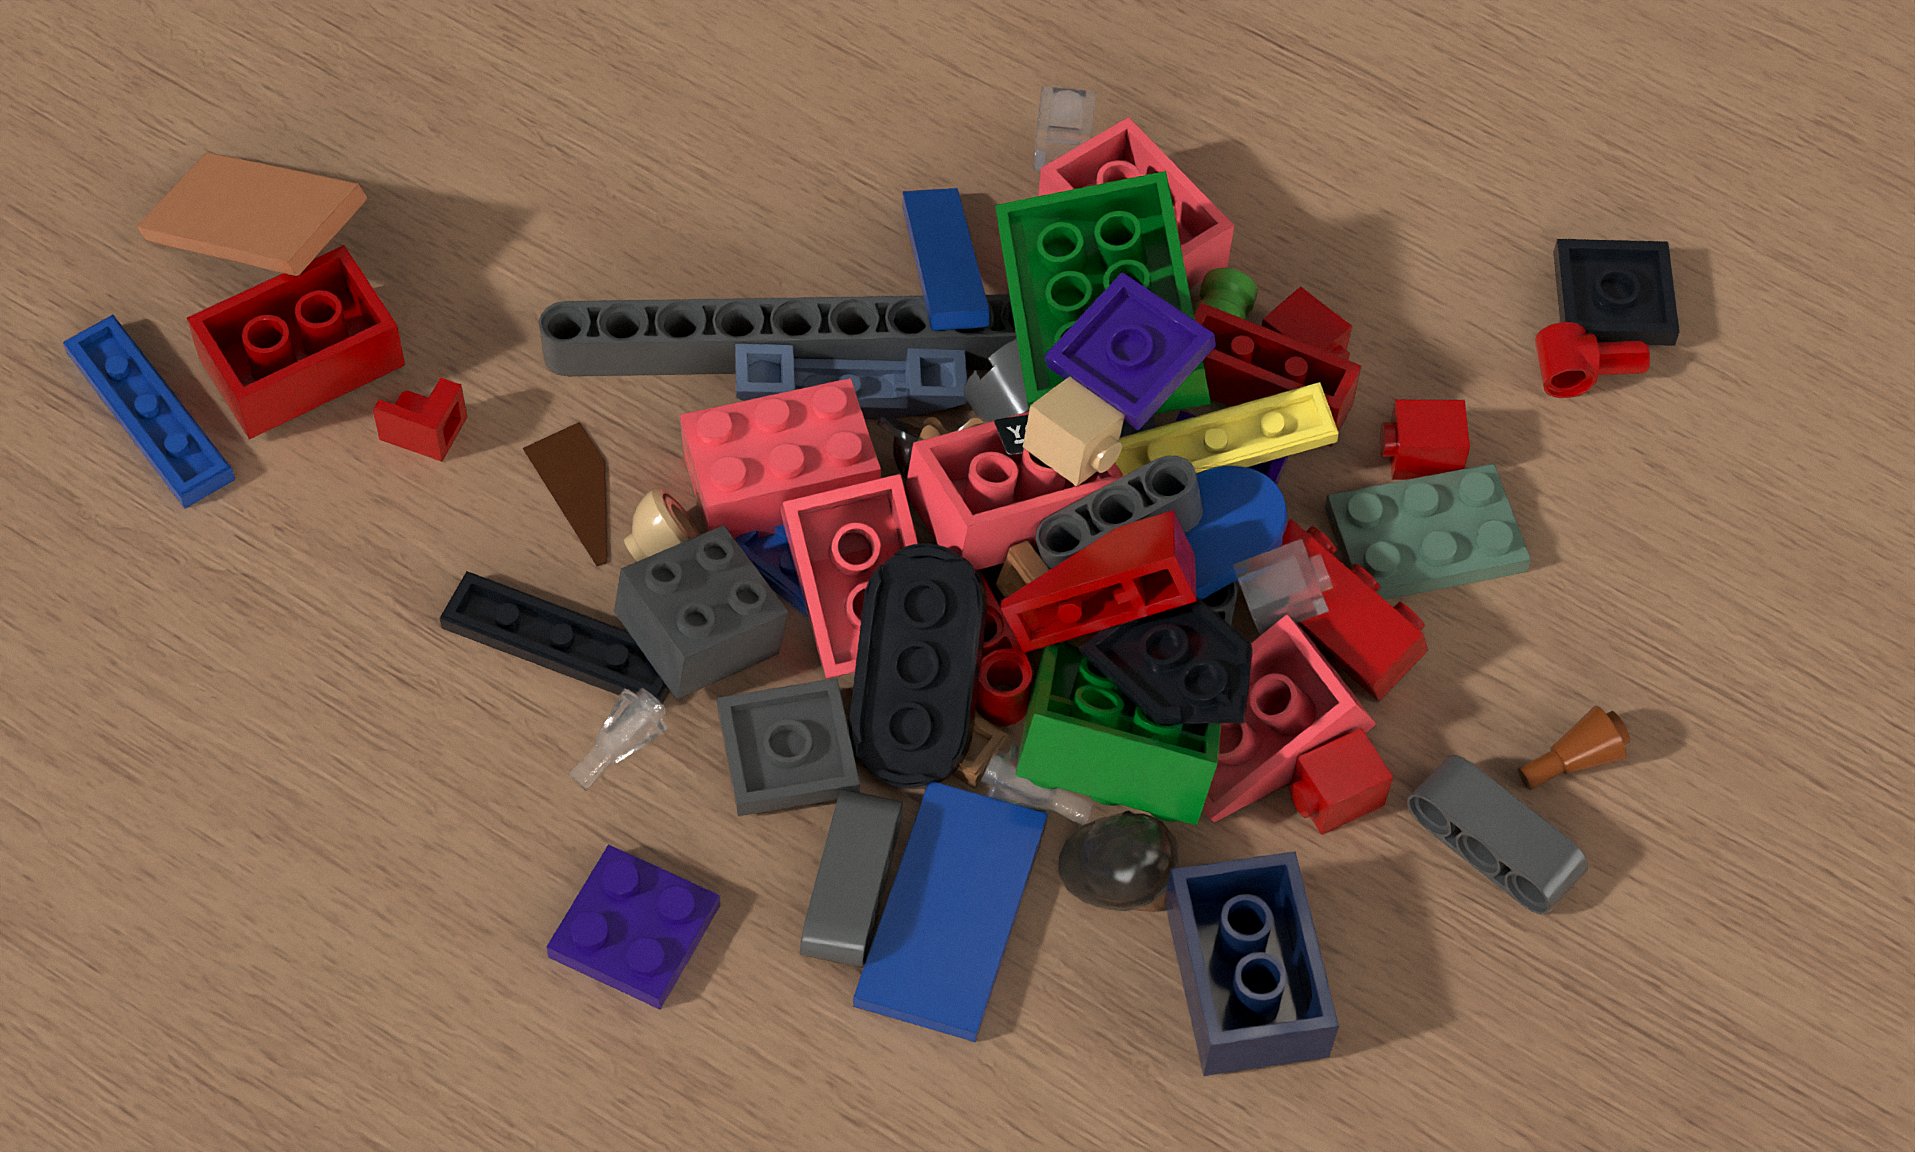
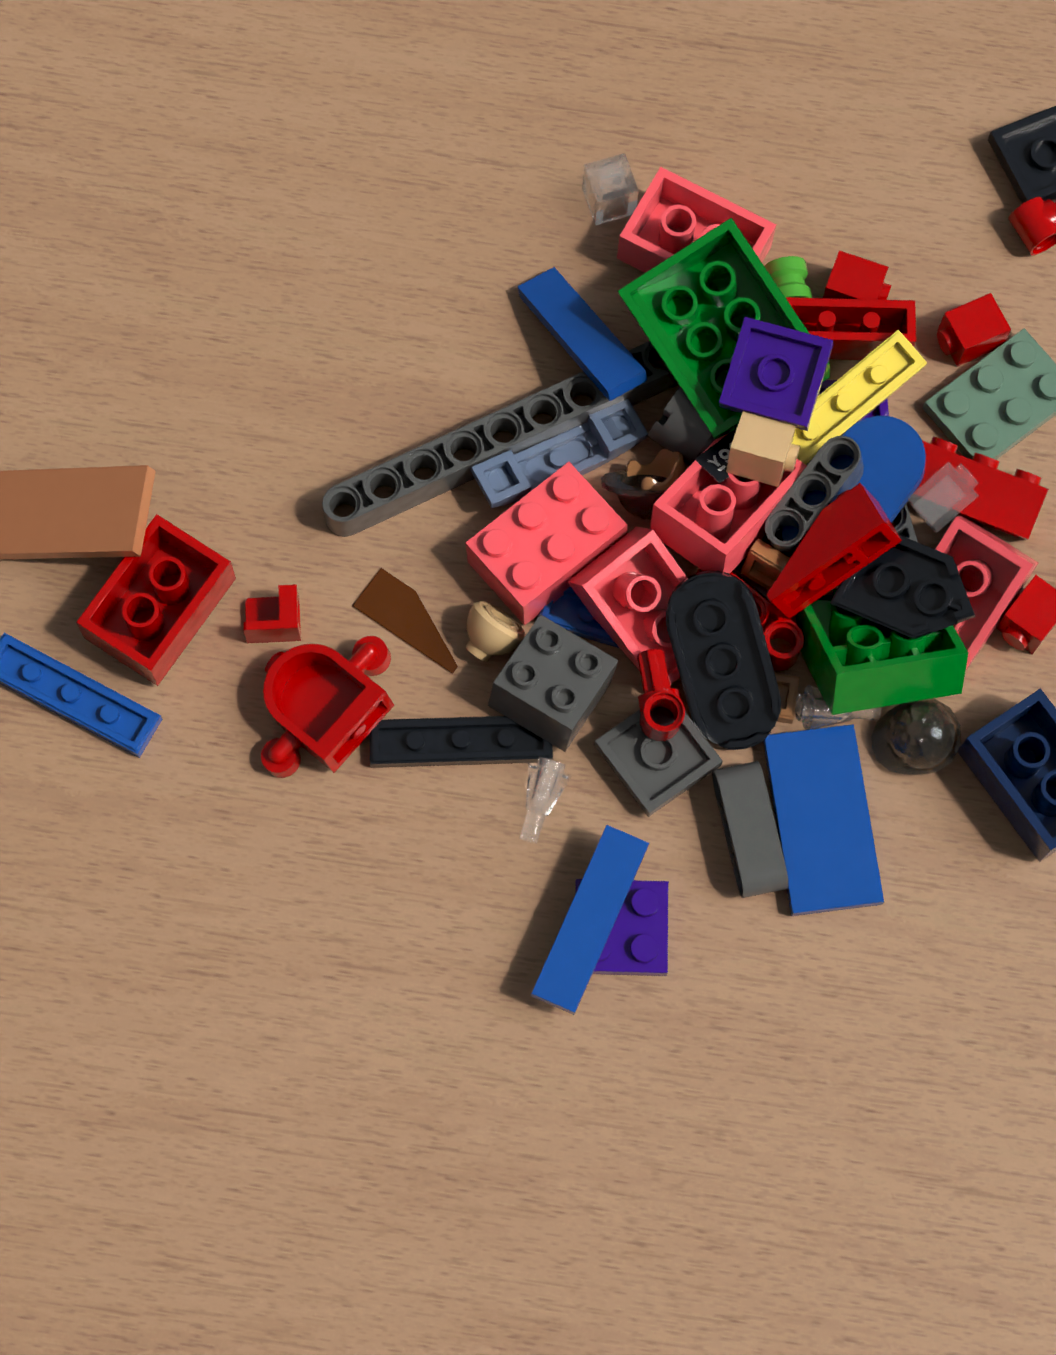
camera: 25 degrees left, 15 degrees up
(421, 526) = (323, 702): none -> red piece
(592, 890) = (590, 920): none -> blue tile
(813, 670) = (658, 694): none -> red axle

